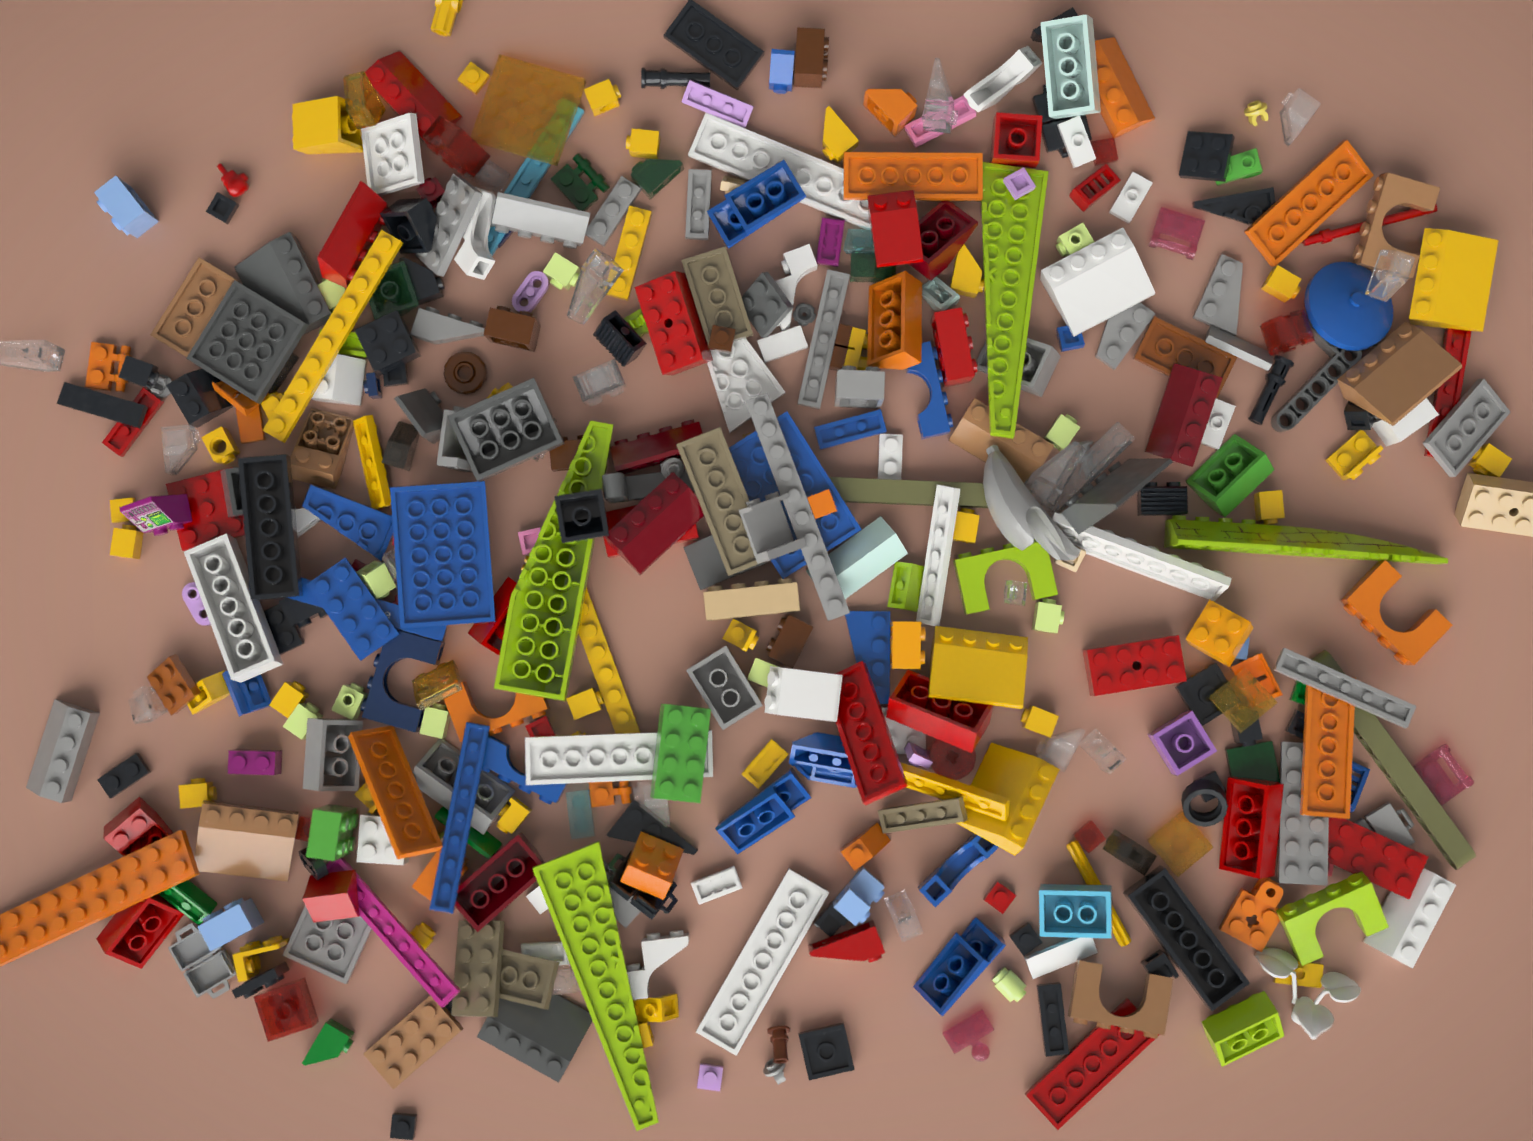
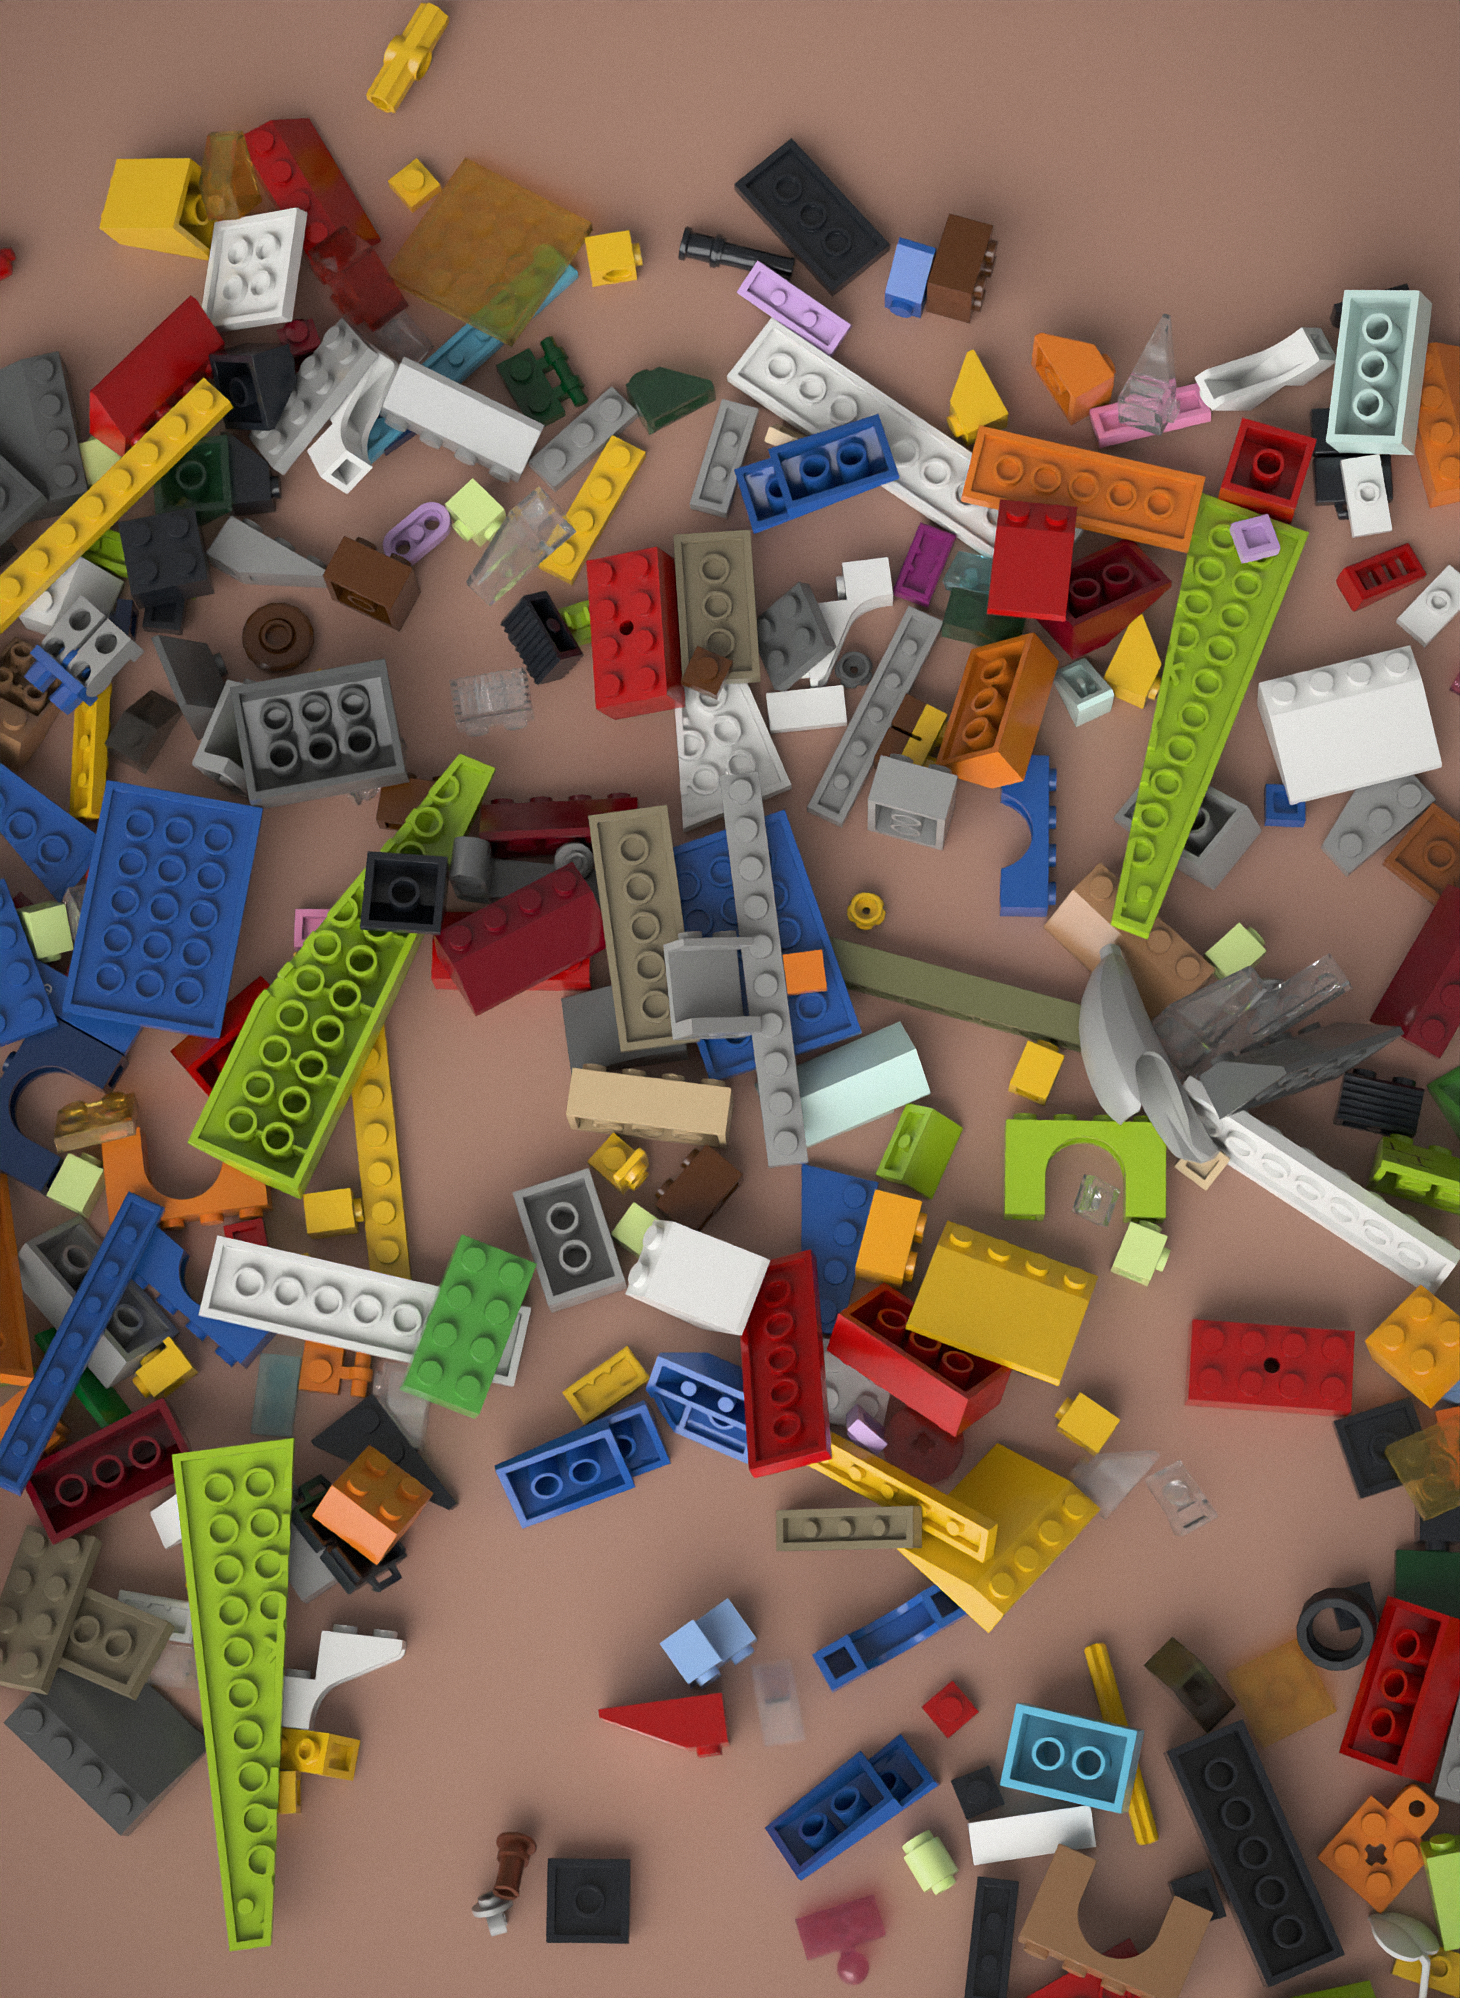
camera: 15 degrees right, 10 degrees down
(355, 413) = (83, 654): none -> light grey hips
(643, 143) = (660, 343): yellow brick -> none
(710, 1077) = (379, 1898): lavender plate -> none
(716, 885) = (473, 1570): white plate -> none
(762, 961) = (517, 1720): white plate -> none
(830, 920) = (652, 1675): black panel -> none
(845, 461) = (870, 901): none -> yellow plate
(850, 429) = (884, 870): blue plate -> none
(865, 846) = (740, 1564): orange slope -> none
(890, 456) = (940, 928): white plate -> none
(938, 555) = (979, 1104): white plate -> none
(953, 346) = (1086, 774): red brick -> none
(1073, 240) = (1325, 648): yellowish green brick -> none
(1089, 836) = (1127, 1641): clear red plate -> none
(1104, 151) = (1410, 523): clear red plate -> none
(1182, 742) = (1321, 1516): medium lavender brick -> none

